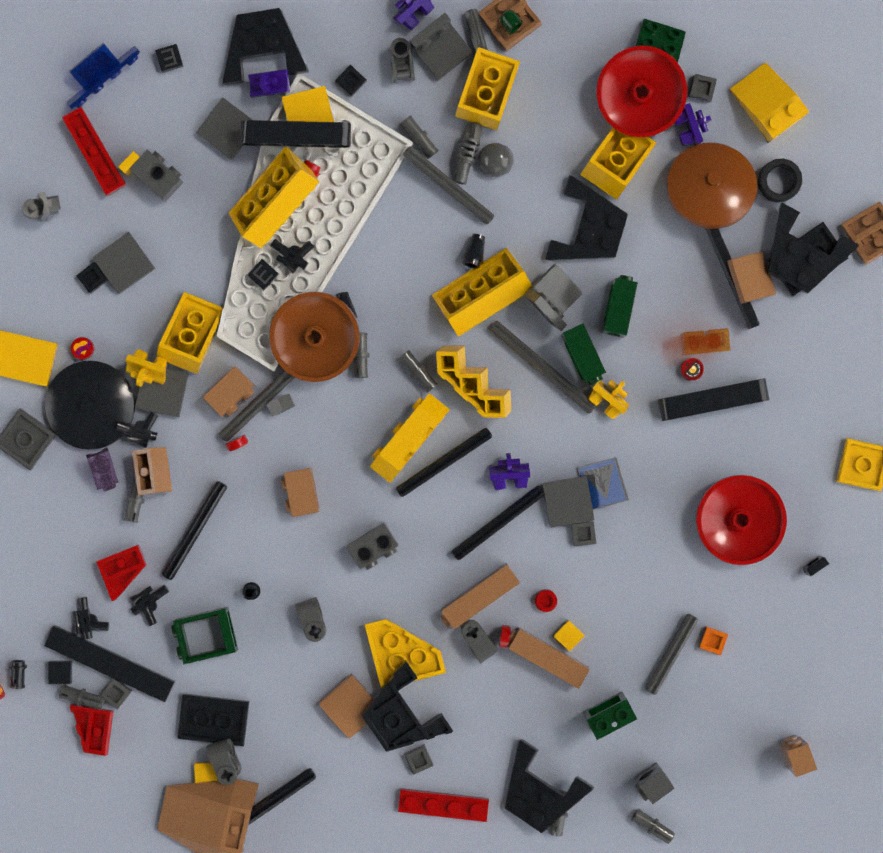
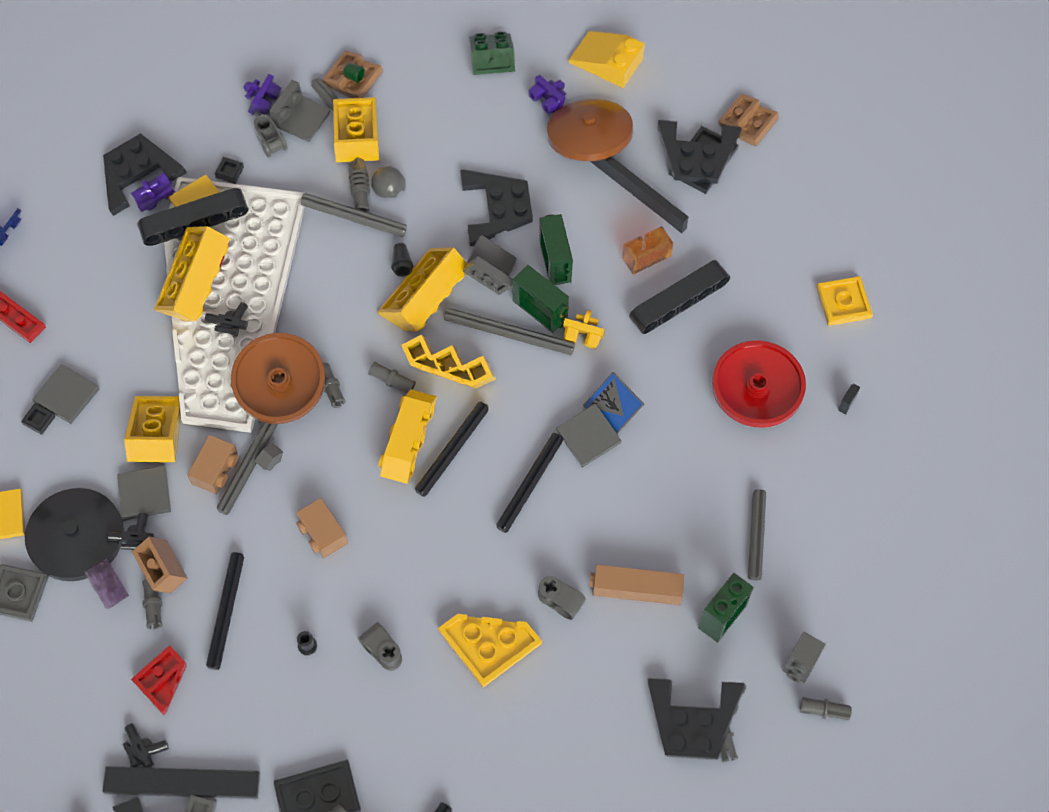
camera: 25 degrees left, 25 degrees down
(82, 348) = (48, 484): red tile -> none
(128, 162) = (43, 305): yellow tile -> none
(144, 169) = (81, 314): dark grey brick -> none
(145, 370) = (120, 472): yellow hips -> none
(147, 602) = (200, 702): black piece -> none
(169, 58) = (51, 211): black tile -> none
(223, 128) = (125, 248): dark grey tile -> none
(227, 631) = (262, 690): dark green window -> none
(237, 443) = (238, 508): red tile -> none
(263, 274) = (207, 347): black tile -> none
(346, 704) = (457, 718): medium nougat slope -> none
(369, 541) = (410, 548): dark grey brick -> none
(394, 720) = (508, 709): black wing -> none
(418, 759) = (553, 744): dark grey tile -> none
(419, 137) = (309, 187): dark grey pin -> none
(443, 805) = (600, 781): red plate -> none
(479, 597) = (542, 555): medium nougat brick -> none
(505, 636) = (585, 582): red tile -> none
(509, 469) = (530, 428): dark purple hips -> none
(545, 600) = (610, 535): red tile -> none
(569, 635) = (648, 557): yellow tile -> none
(583, 533) = (617, 459): dark grey tile -> none
(617, 161) = (497, 142): yellow slope -> none
(641, 91) = (493, 79): red dish -> none
(692, 369) = (647, 281): tile -> none
(703, 88) = (545, 66): dark grey tile -> none
(713, 640) = (790, 506): orange tile -> none
(751, 277) = (661, 185): medium nougat slope -> none
(792, 168) = (647, 94): black tyre -> none
(797, 755) = (929, 571): medium nougat brick -> none

